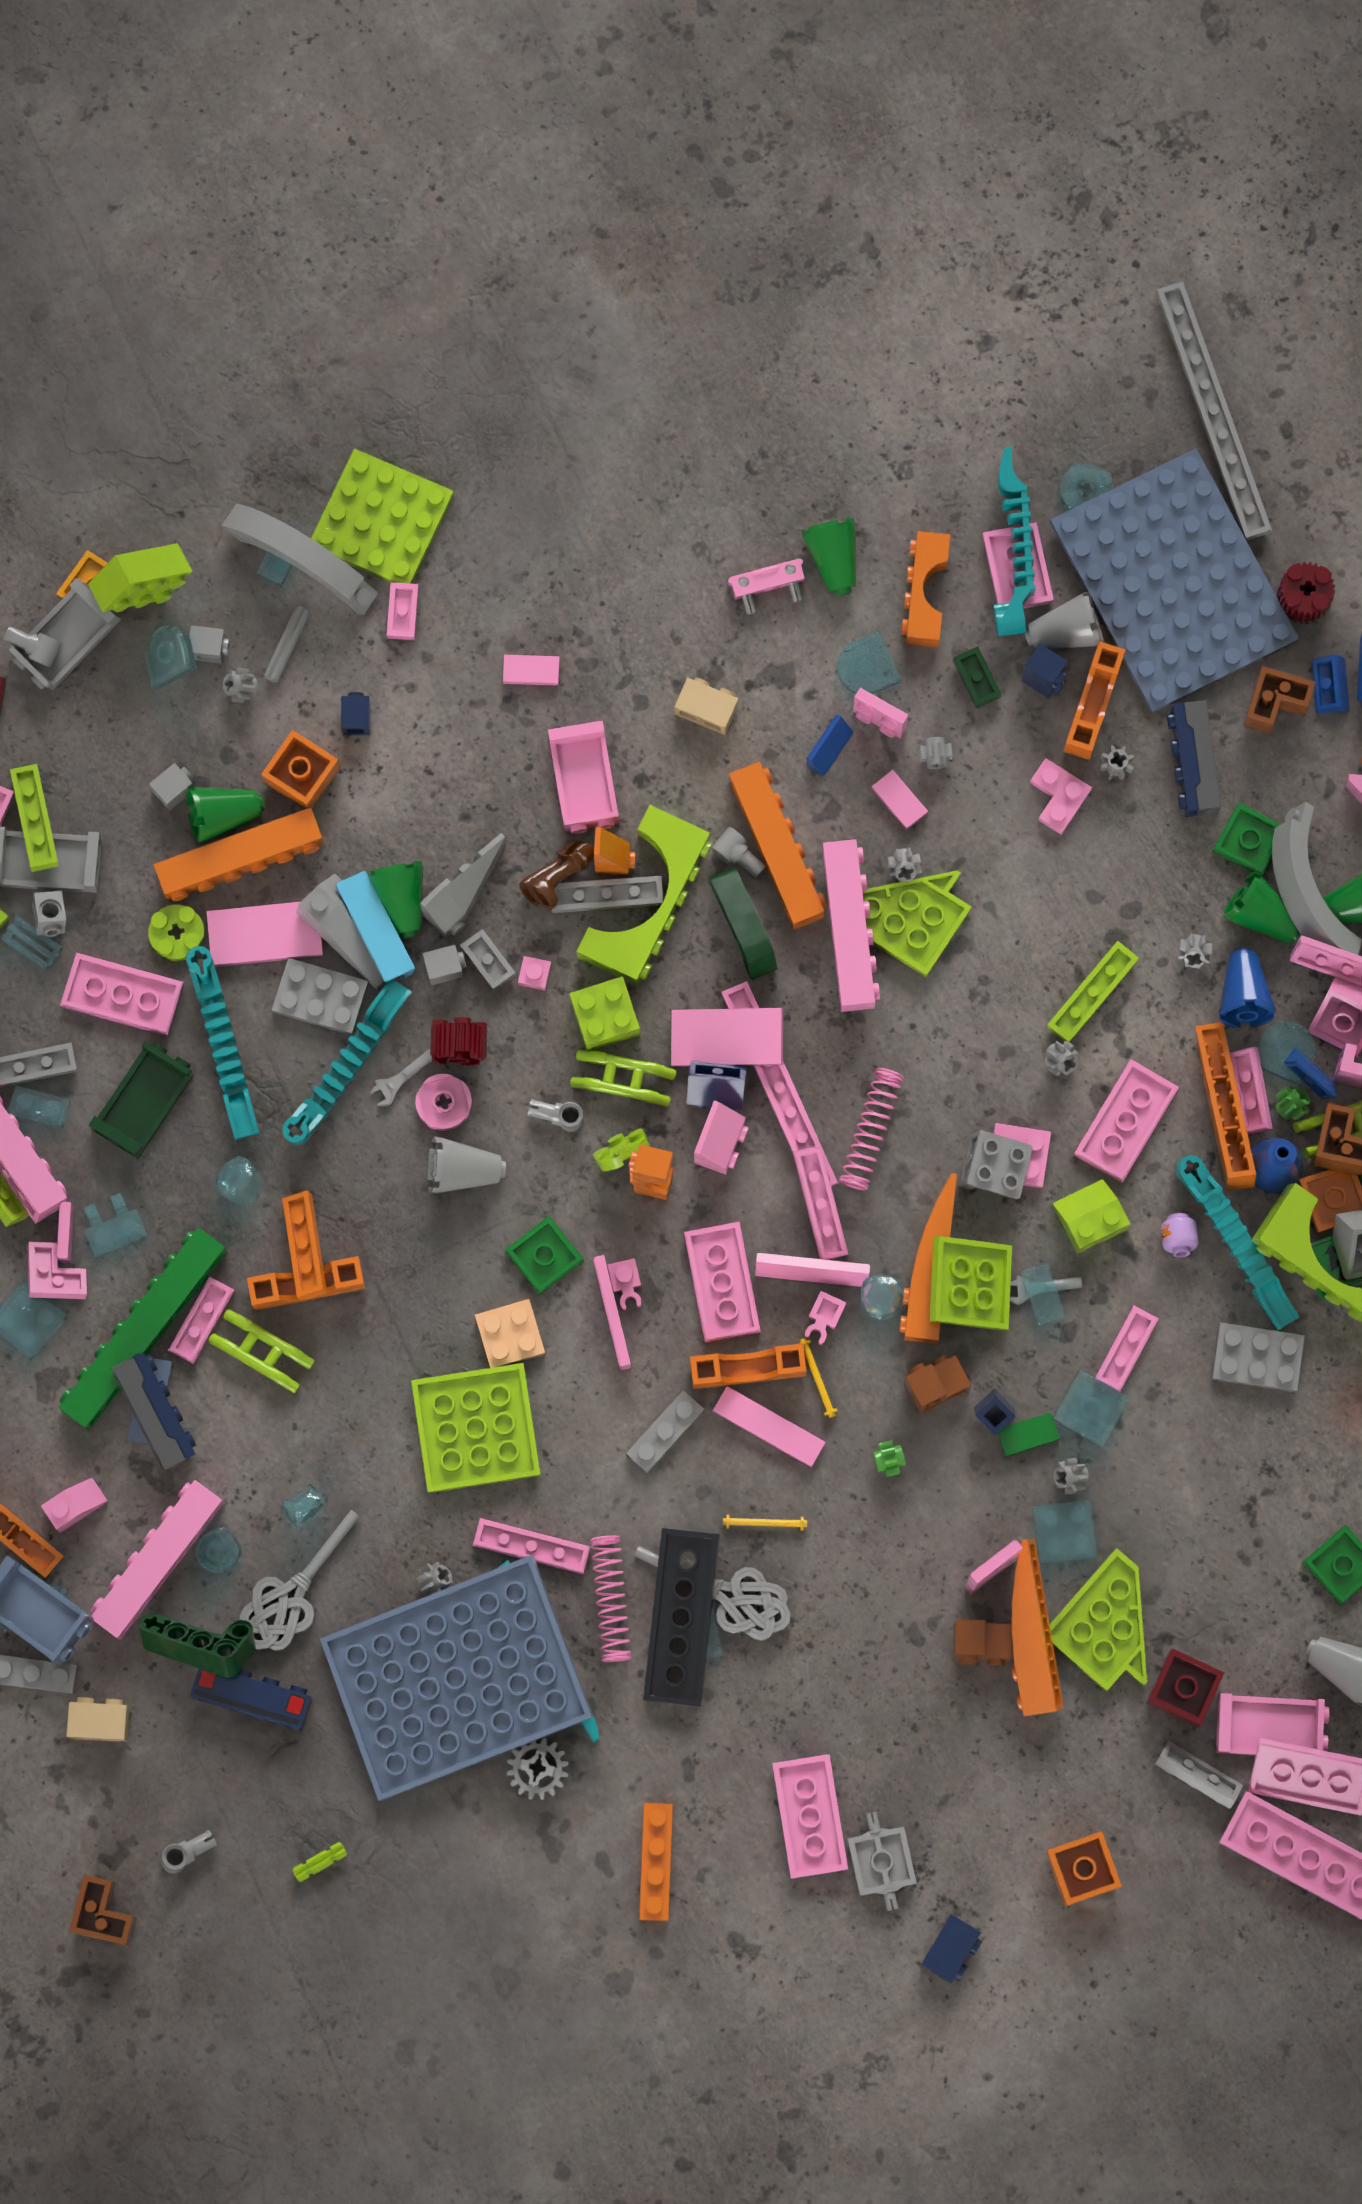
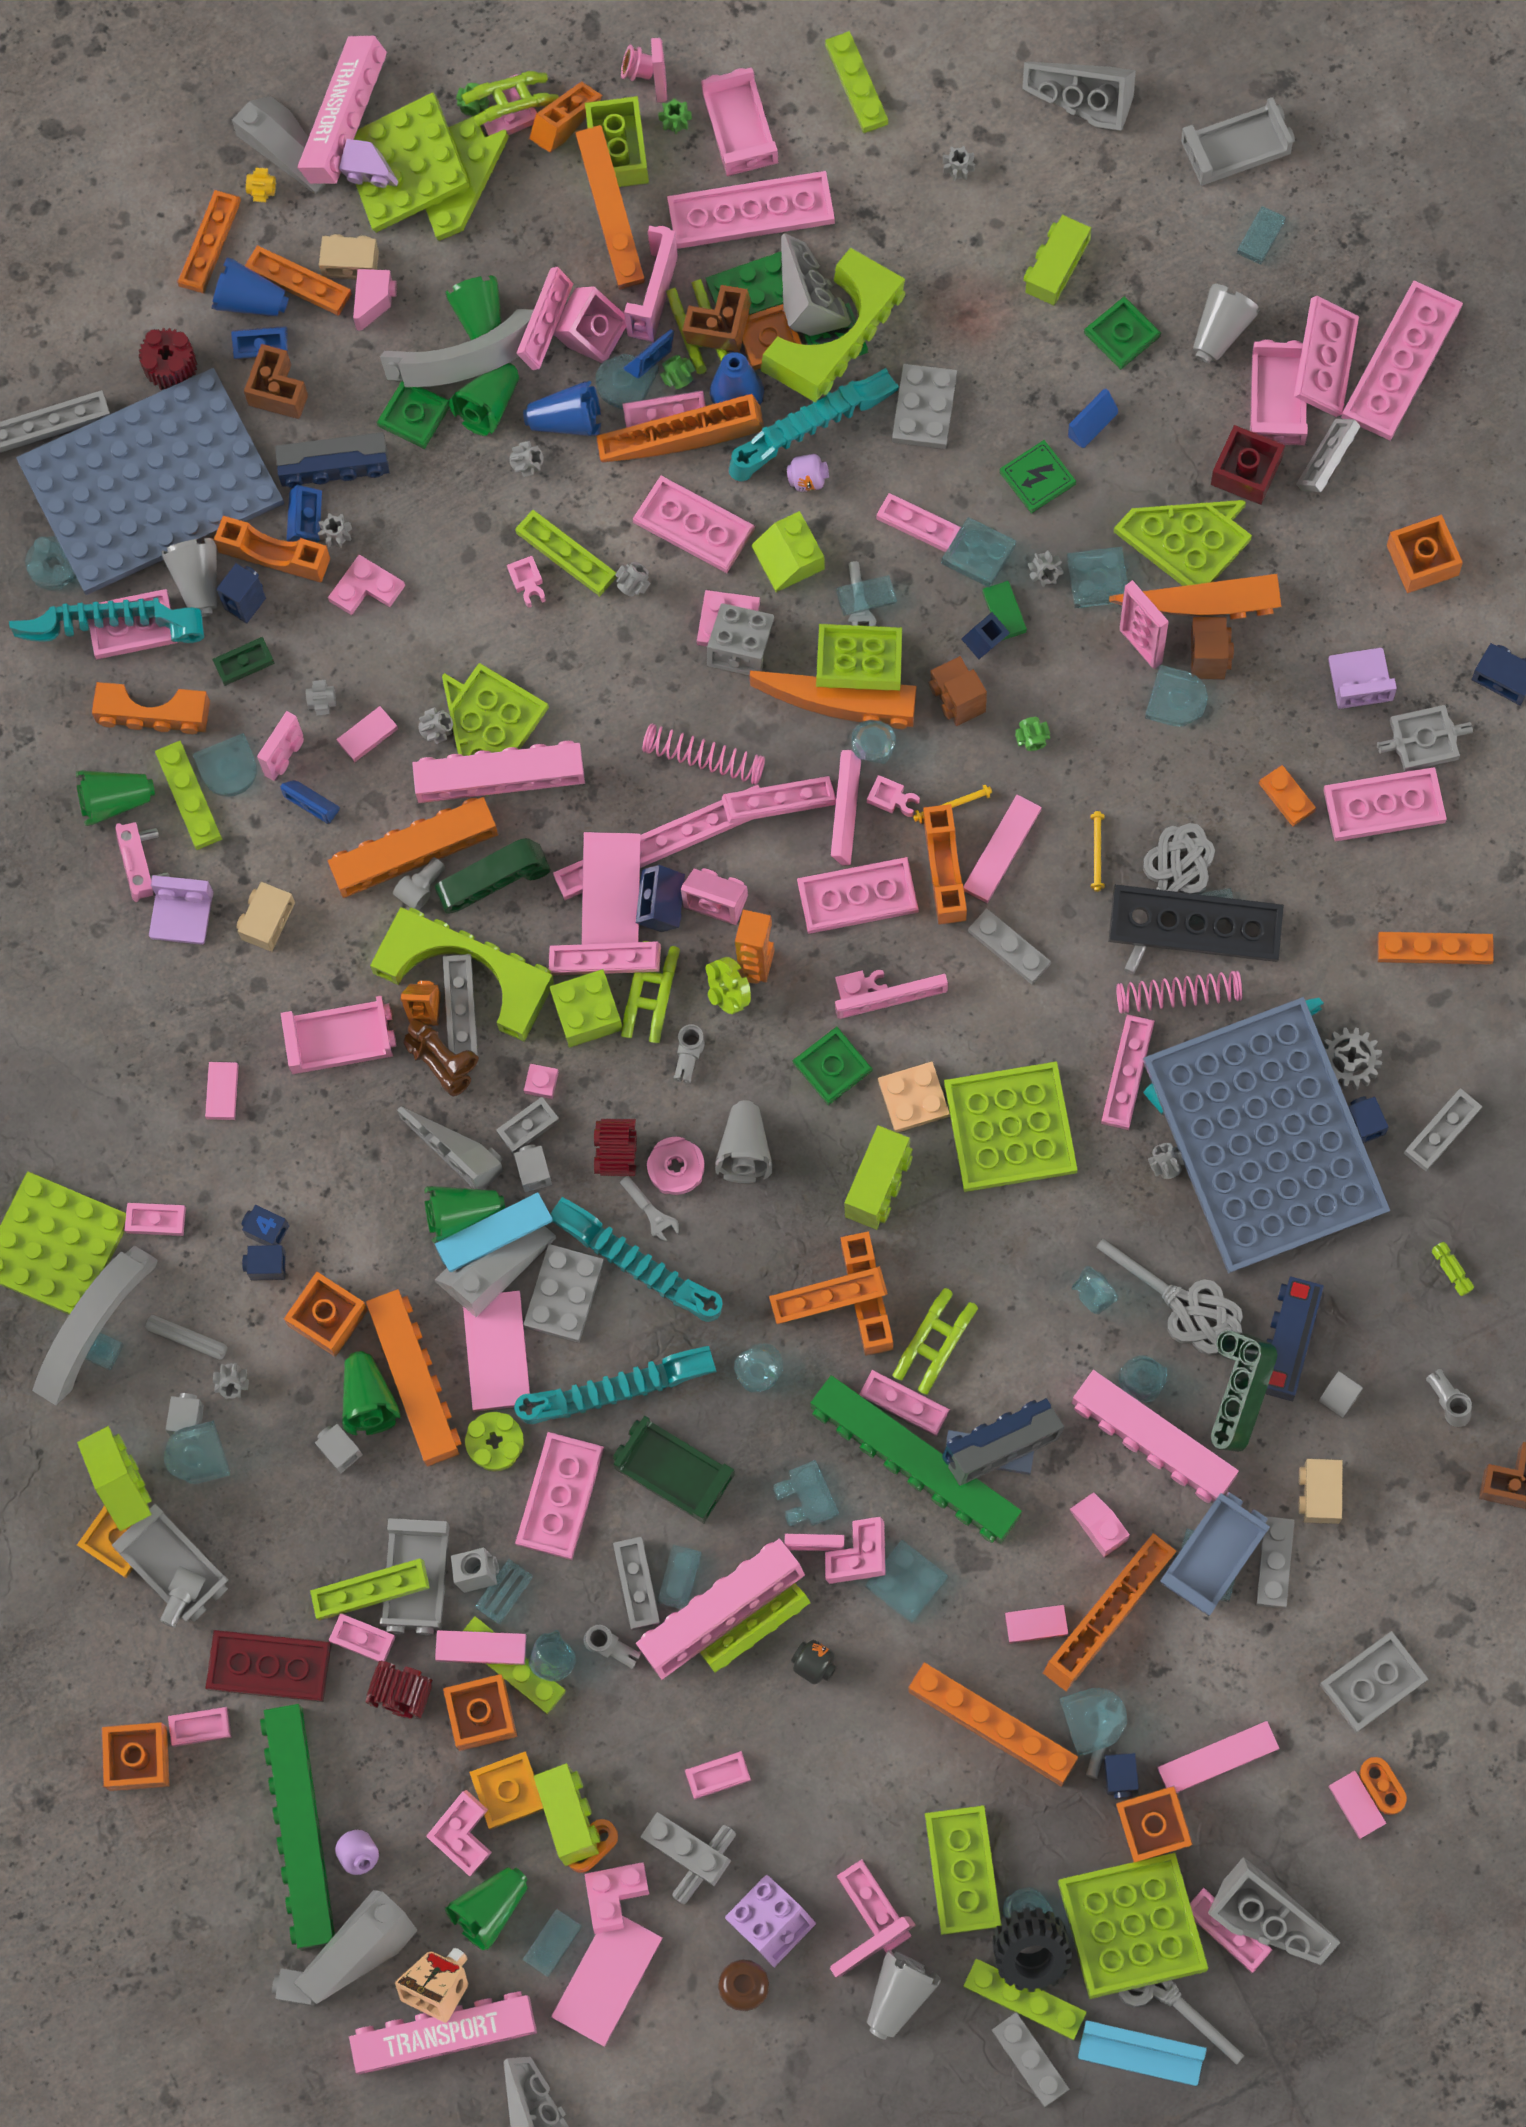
camera: 85 degrees left, 5 degrees down
(194, 1744) = (1340, 1394): none -> light grey brick
(391, 713) = (264, 1226): none -> dark blue brick
(420, 1295) = (878, 1178): none -> lime brick
(462, 1859) = (1443, 1130): none -> light grey plate
(474, 1781) = (1368, 1118): none -> dark blue brick
(656, 1032) = (610, 957): none -> bright pink tile
(712, 624) = (180, 909): none -> lavender bracket
(822, 1717) = (1287, 795): none -> orange plate
(837, 629) = (188, 795): none -> lime plate
(930, 1608) = (1176, 697): none -> clear light blue tile
(949, 1798) = (1361, 678): none -> lavender bracket
(1066, 952) = (526, 577): none -> bright pink plate
(1138, 733) = (304, 514): none -> blue slope
(1178, 1472) = (1037, 476): none -> green tile
(1241, 1530) = (1092, 419): none -> blue slope

